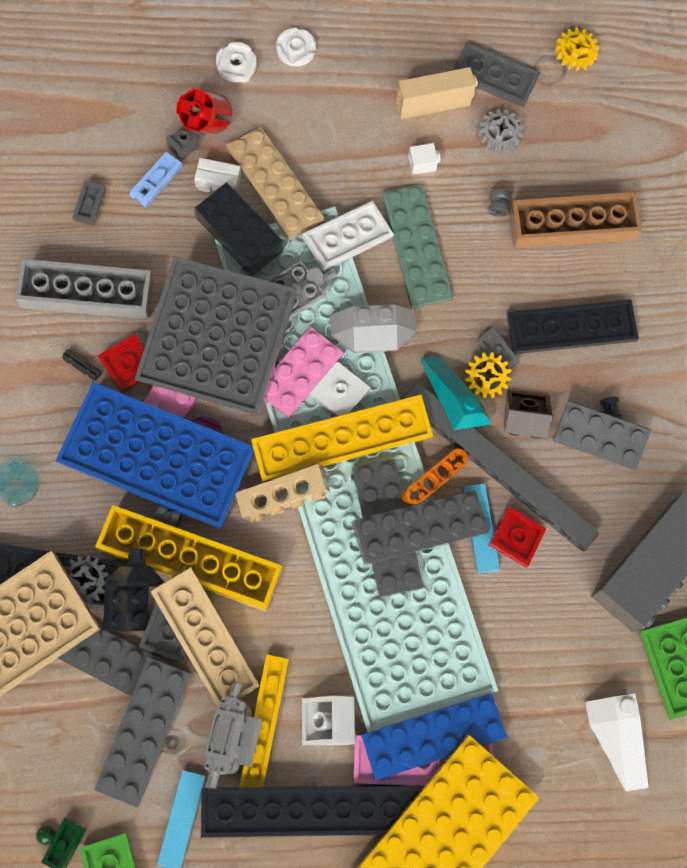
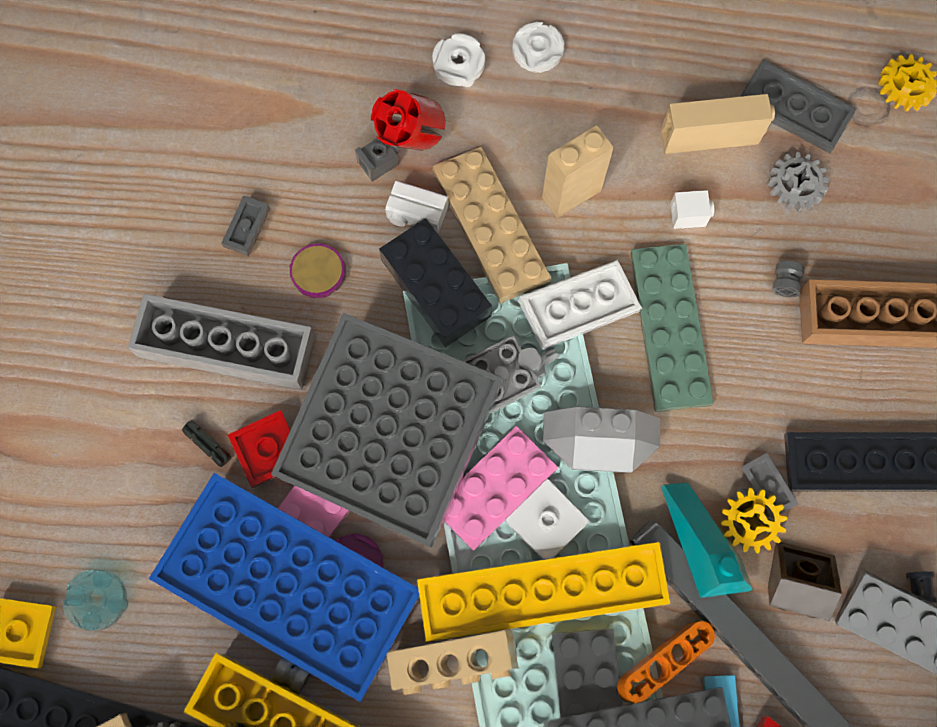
camera: 15 degrees right, 0 degrees up
(148, 231) = (317, 270): none -> pearl gold tile
(156, 179) = (336, 203): light blue plate -> none
(334, 138) = (576, 171): none -> tan brick

